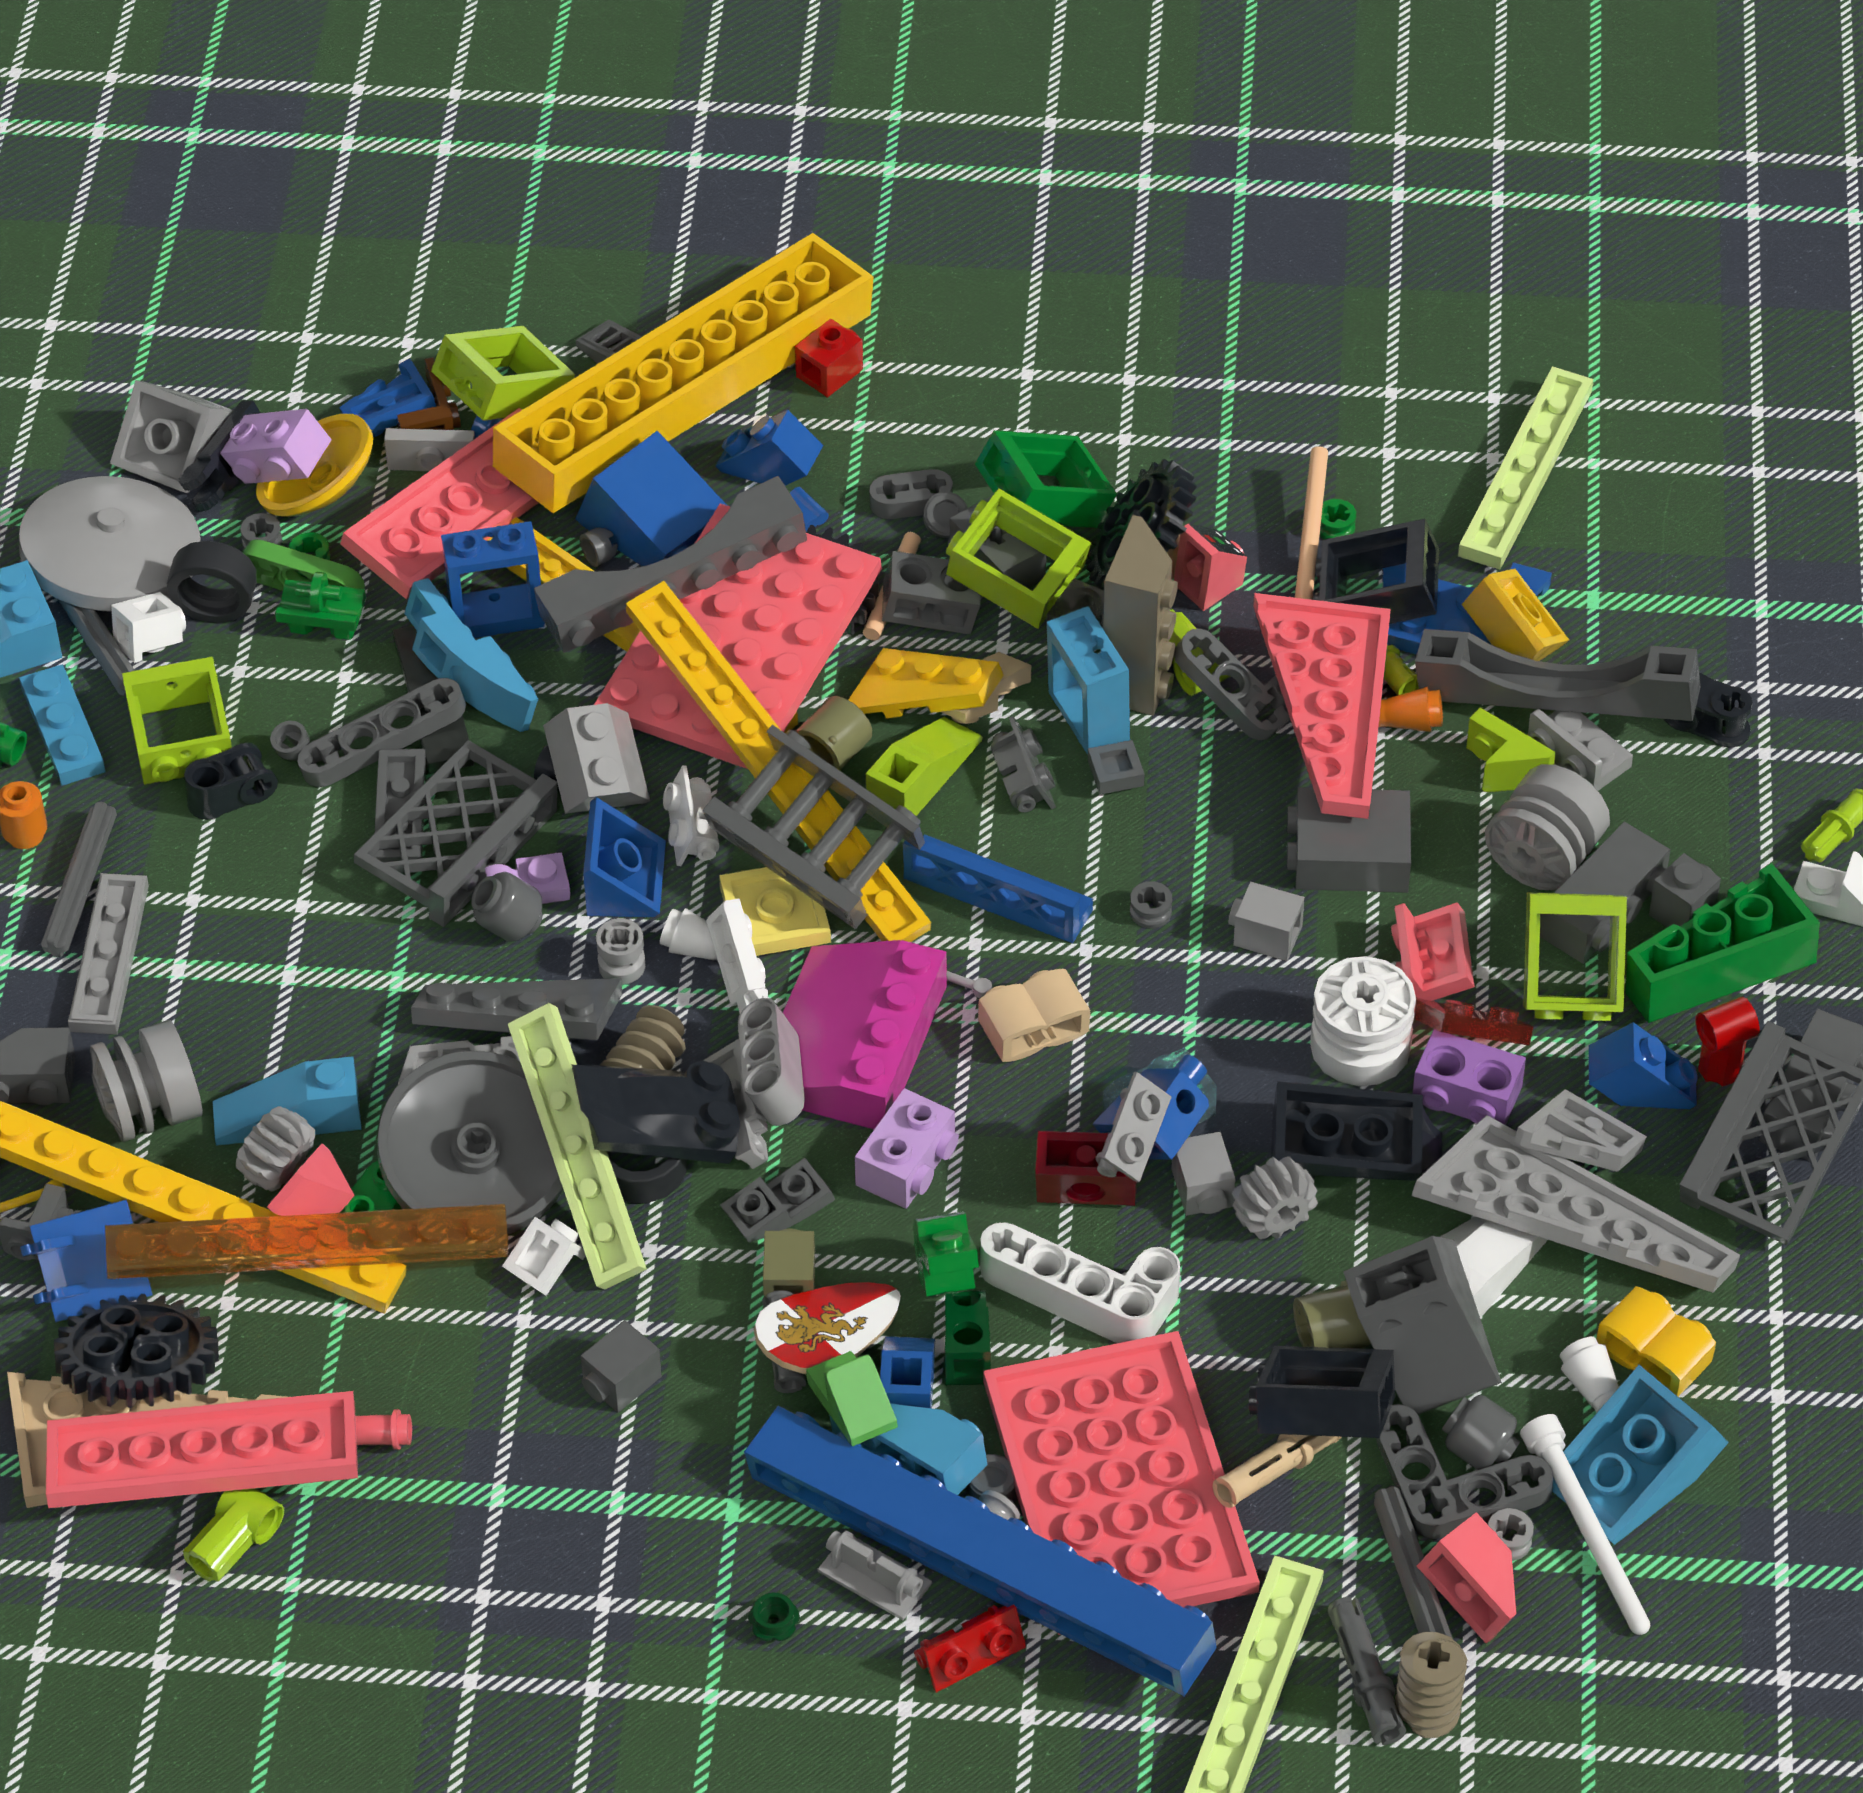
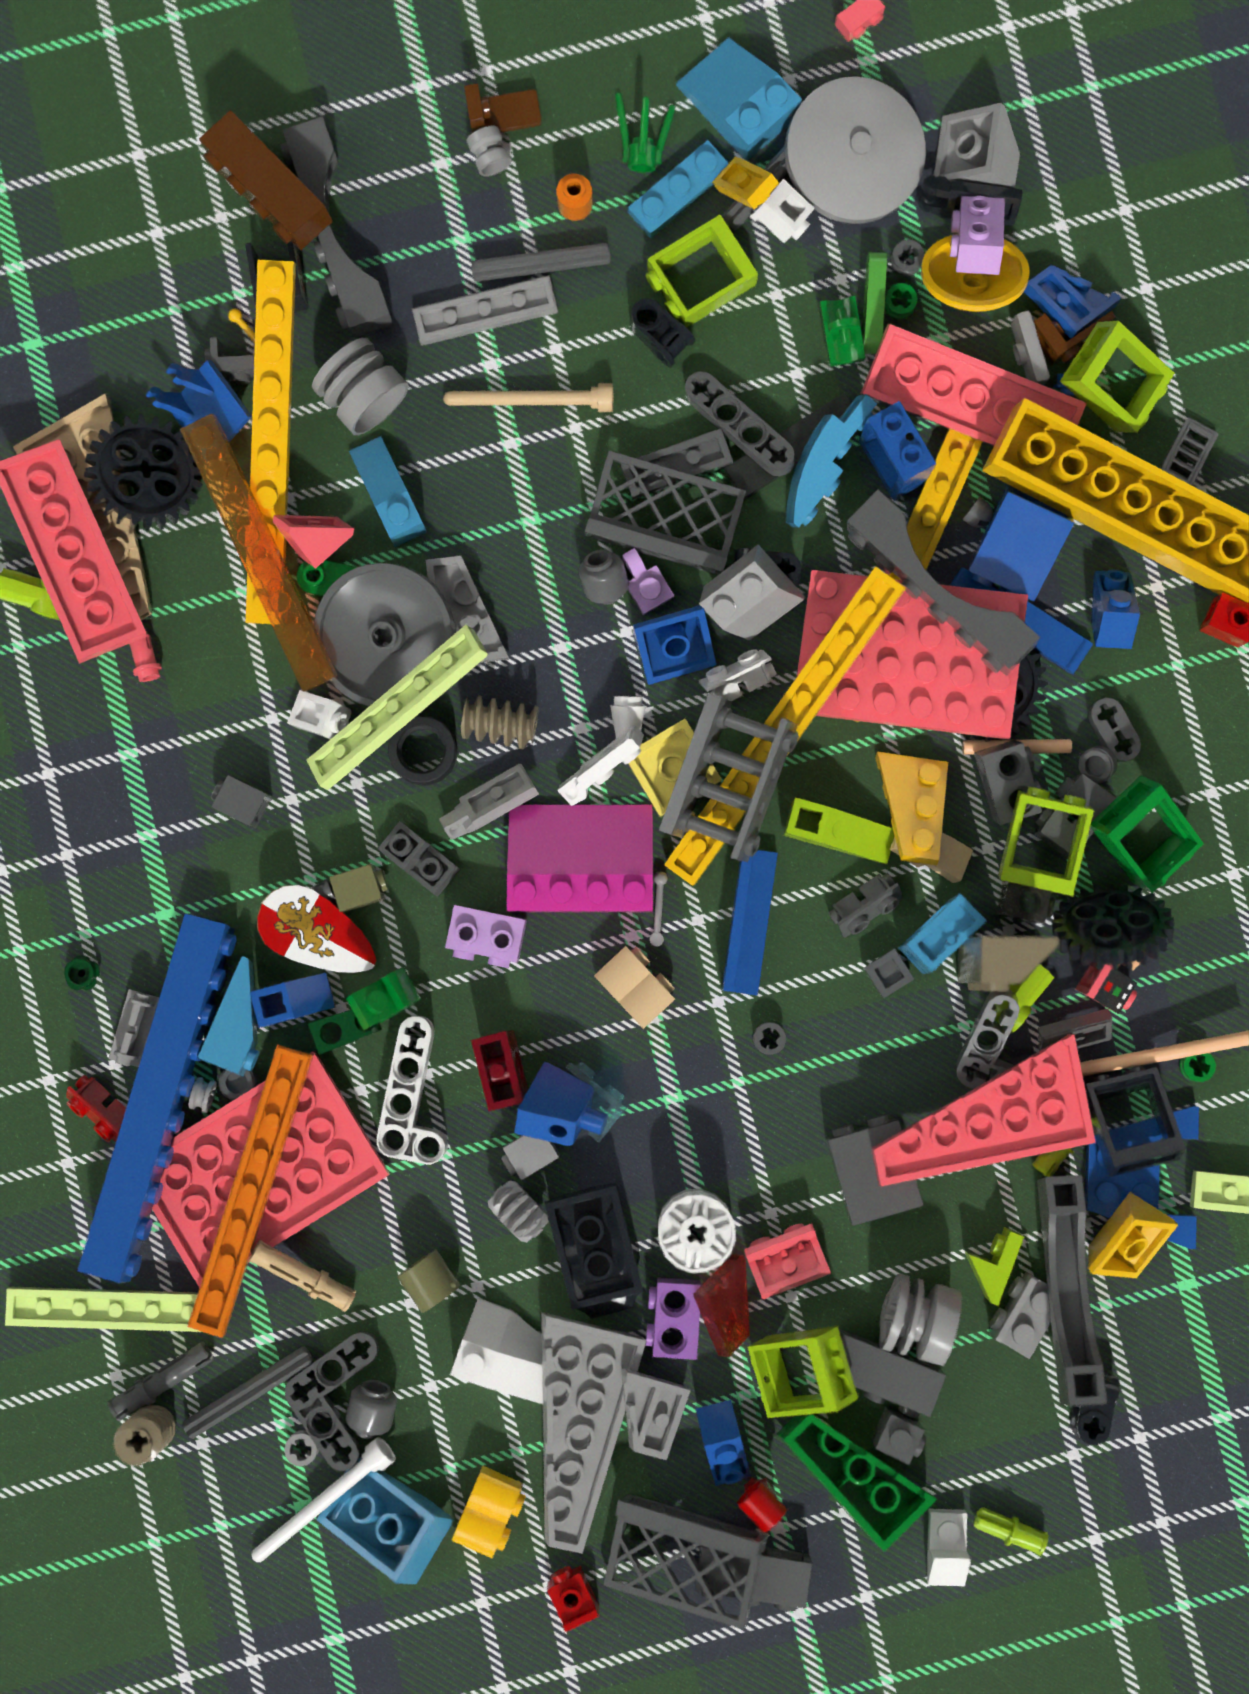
camera: 75 degrees right, 35 degrees up
(96, 640) = (745, 182): none -> yellow plate
(218, 561) = (832, 242): black tyre -> none
(275, 1148) = (336, 498): light grey gear -> none
(279, 861) = (598, 397): none -> tan piece
(295, 734) = (705, 359): dark grey hinge -> none
(582, 1004) = (524, 626): dark grey wing -> none
(620, 950) = (594, 677): light grey wheel -> none
(660, 1111) = (439, 752): black slope -> none
(771, 1062) = (507, 830): light grey beam -> none
(836, 731) = (842, 755): olive piece -> none
(853, 1396) = (242, 973): bright green slope -> none
(1134, 1129) = (500, 1103): light grey hinge -> none
(1145, 1483) = (250, 1191): none -> orange tile
(1246, 622) = (1088, 1030): none -> dark grey tile
(1267, 920) = (776, 1129): light grey brick -> none
(1324, 1391) = (382, 1292): black window -> none
(1413, 710) = (1018, 1182): orange cone -> none
(1427, 1315) = (430, 1351): dark grey slope -> none
(1474, 1576) = (251, 1436): coral slope -> none
(1590, 1370) = (449, 1471): white cone -> none
(1795, 1281) = (580, 1611): none -> red brick

